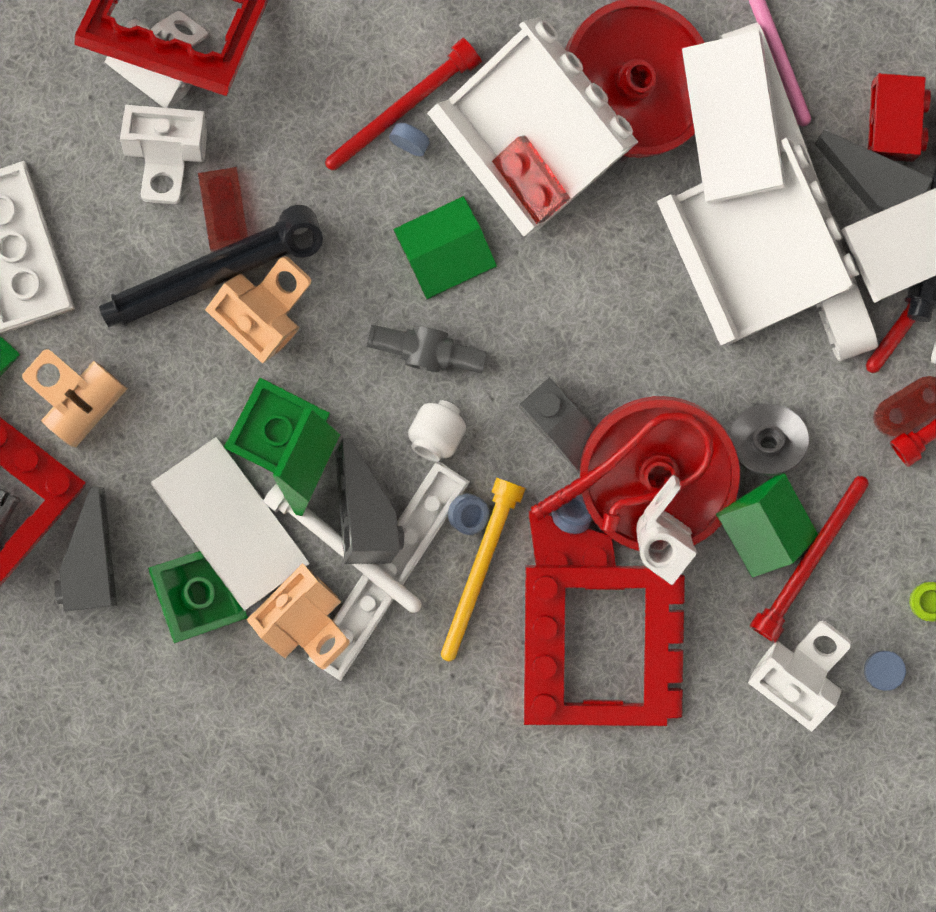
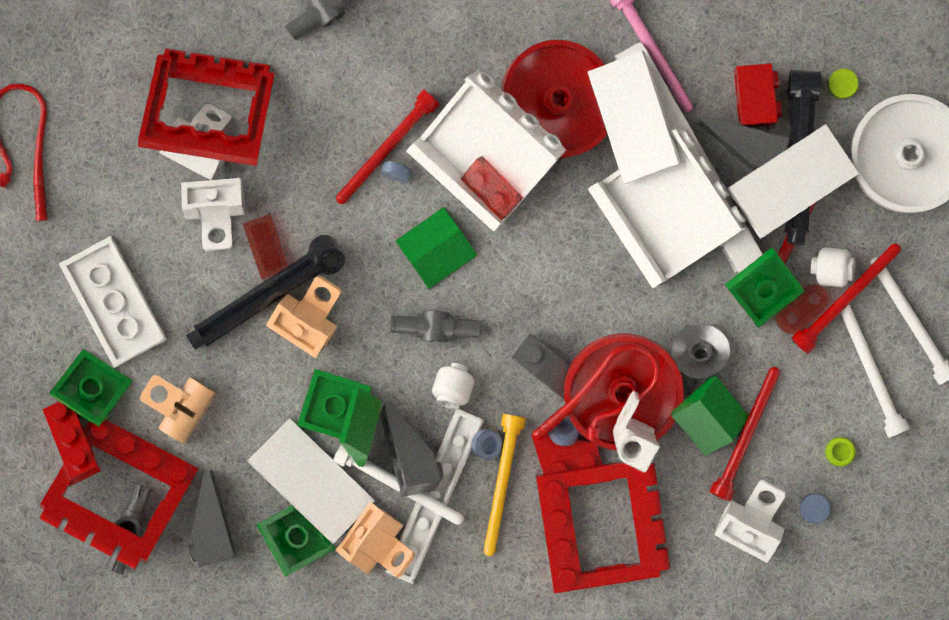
camera: 10 degrees left, 0 degrees up
(868, 369) = (764, 287): none -> green plate

